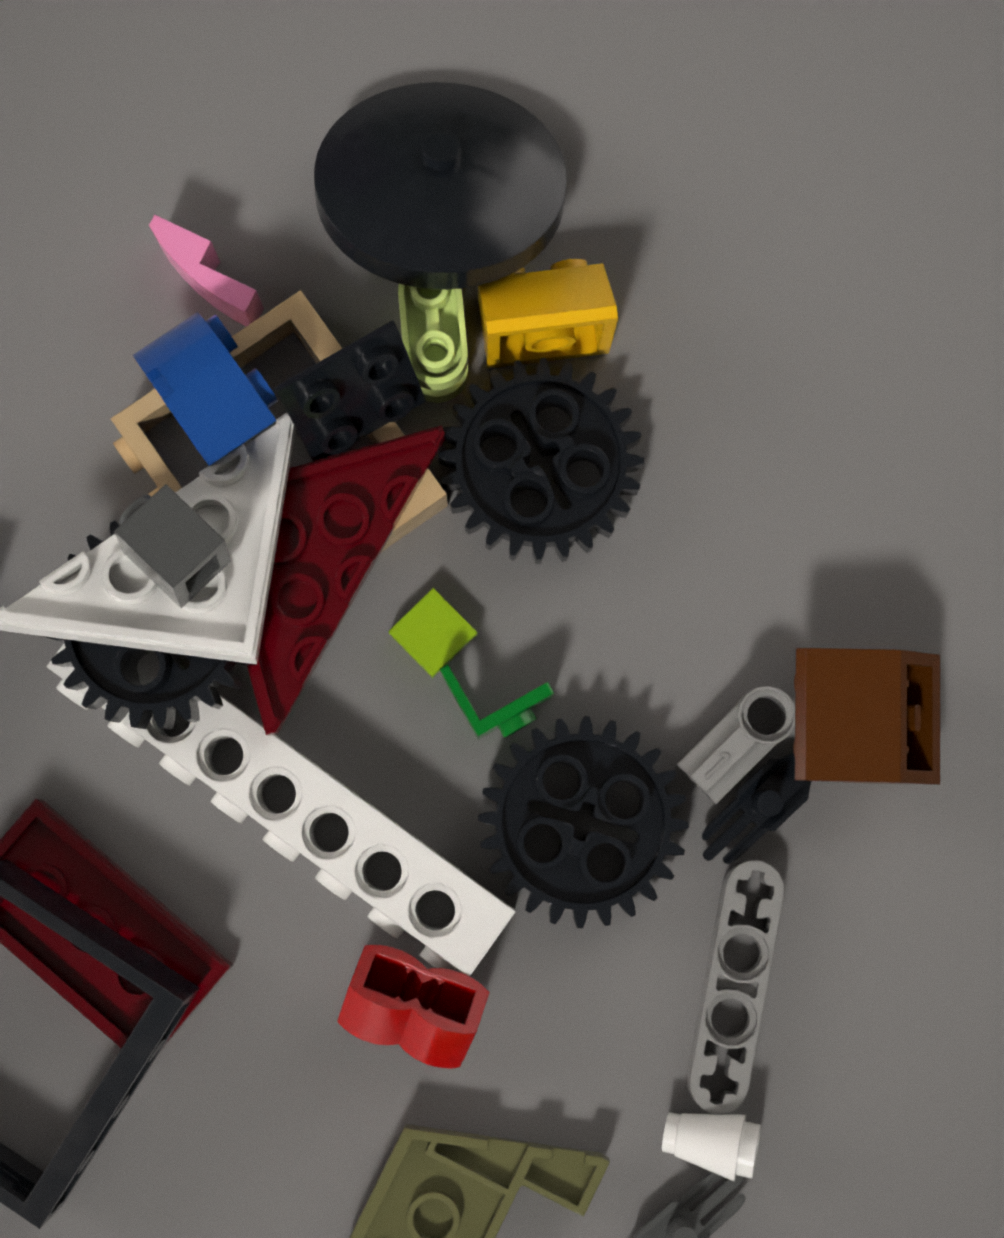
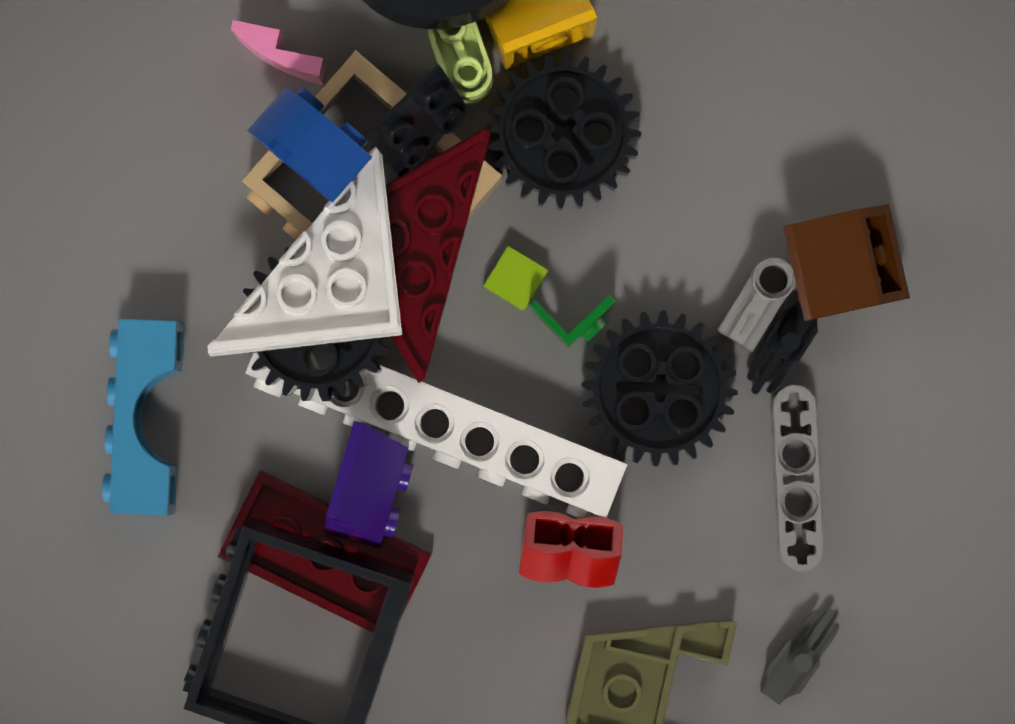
camera: 15 degrees left, 5 degrees up
(163, 855) = (367, 486): none -> dark purple slope
(171, 544) = (323, 265): dark grey brick -> none
(713, 1142) = (807, 591): white cone -> none

